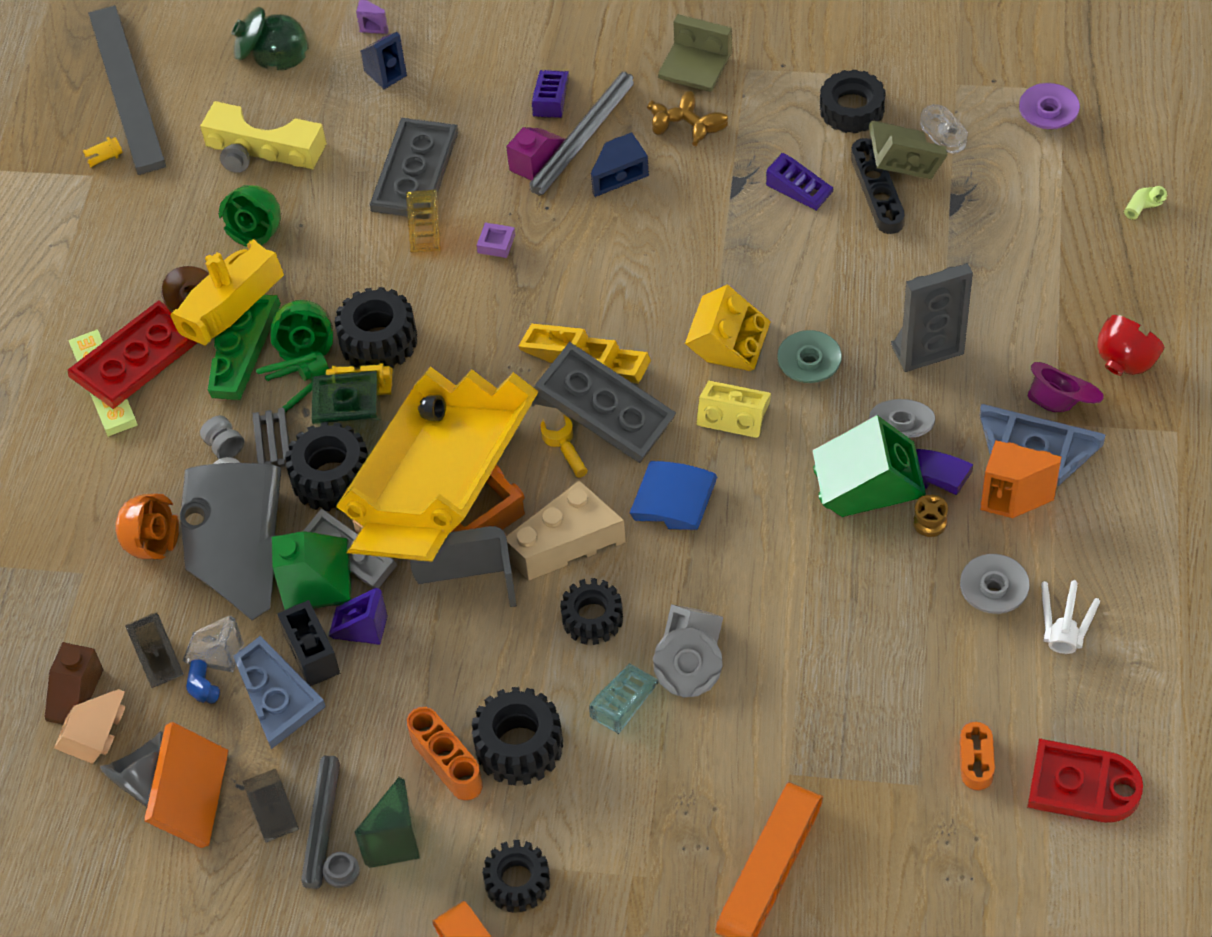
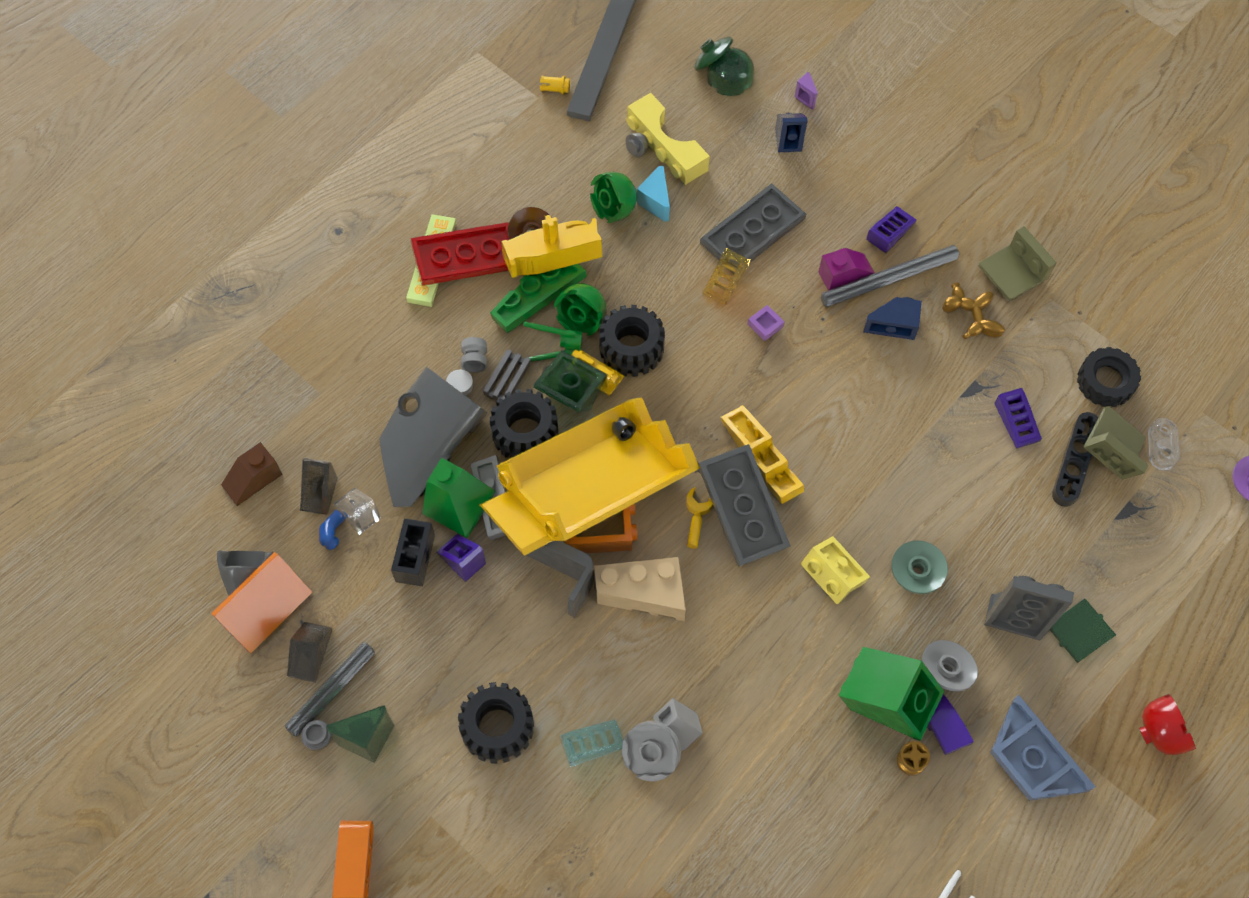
camera: 30 degrees right, 10 degrees up
(88, 727) = (237, 513): light nougat slope -> none
(147, 526) = (376, 391): orange cylinder -> none
(276, 691) = (370, 576): sand blue wing -> none
(294, 191) = (653, 194): none -> medium azure slope
(448, 767) = (441, 685): orange beam -> none
(520, 895) = (402, 824): black tyre -> none
(587, 595) = (614, 644): black tyre -> none
(673, 495) = (741, 610): blue slope -> none
(727, 330) = (876, 505): yellow slope -> none
(994, 322) = (1082, 630): none -> clear green piece
(994, 572) = (928, 838): light grey dish -> none
(1018, 479) = (997, 780): orange slope -> none
(1059, 390) = (1089, 725): magenta piece -> none

